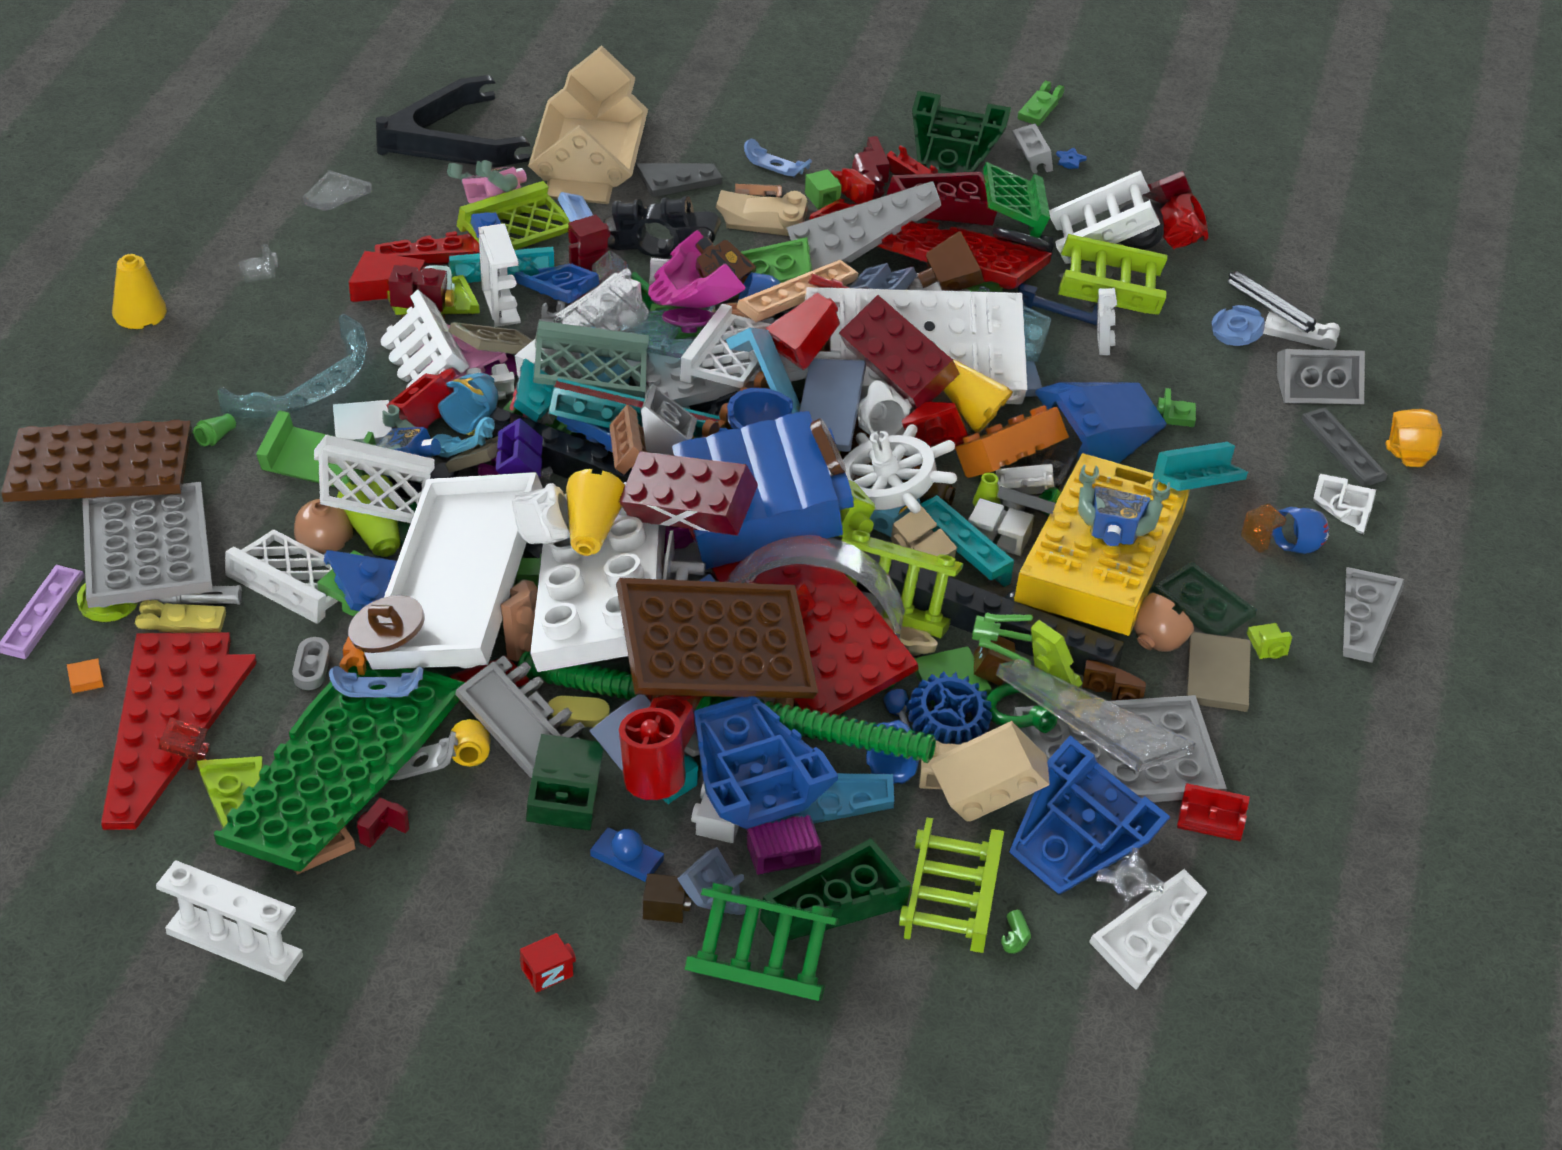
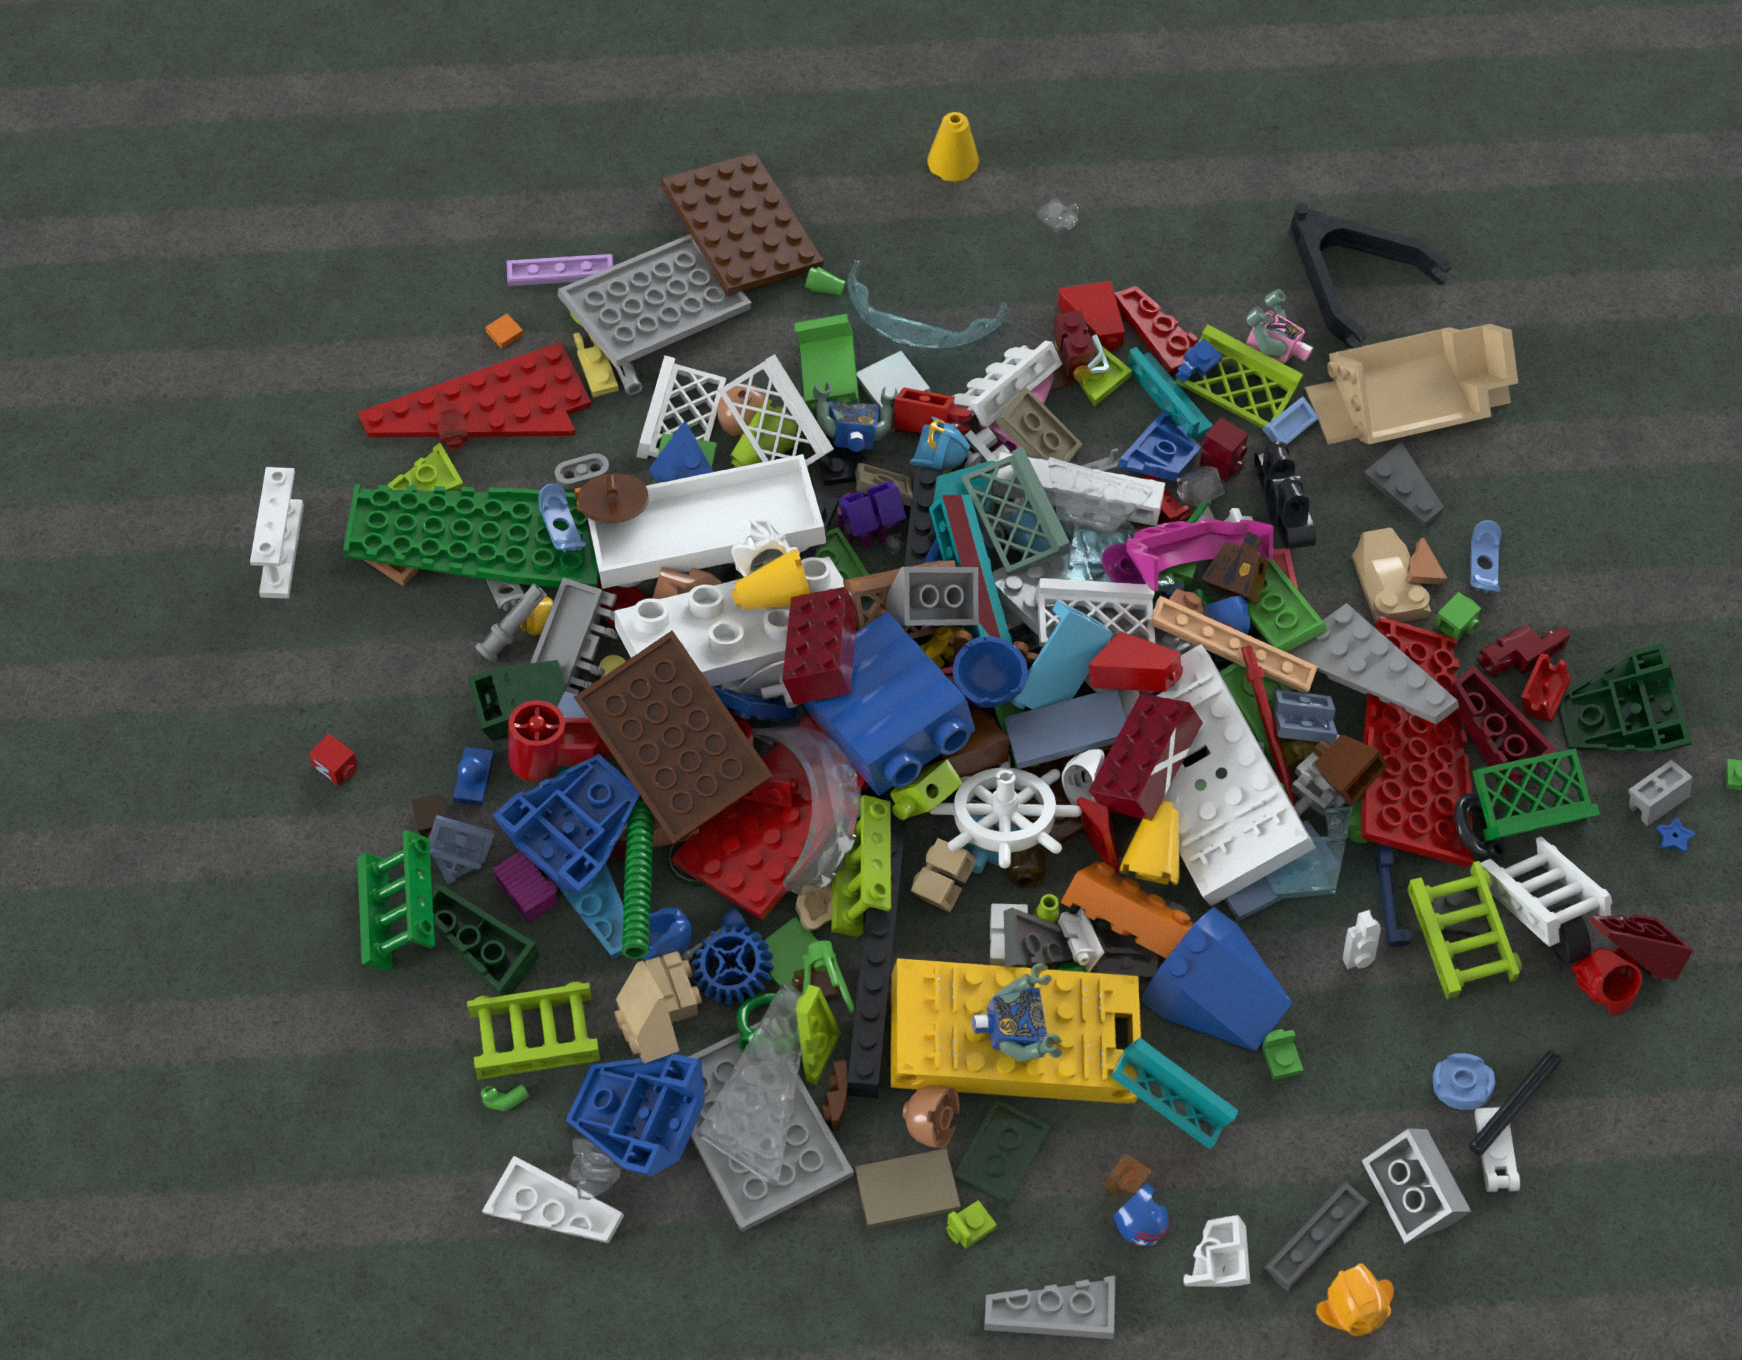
camera: 70 degrees right, 15 degrees up
(335, 190) = (1201, 221): clear wing -> none
(379, 818) = (430, 587): dark red bracket -> none
(454, 445) = (894, 461): medium azure piece -> none
(477, 770) = (503, 633): none -> light grey pin
(495, 257) = (1121, 396): white window -> none
(827, 447) = (927, 732): reddish brown tile -> none
(855, 185) = (1477, 639): red hinge -> none
(970, 541) = (965, 909): teal fence -> none
(1213, 812) = (707, 1224): red hinge -> none

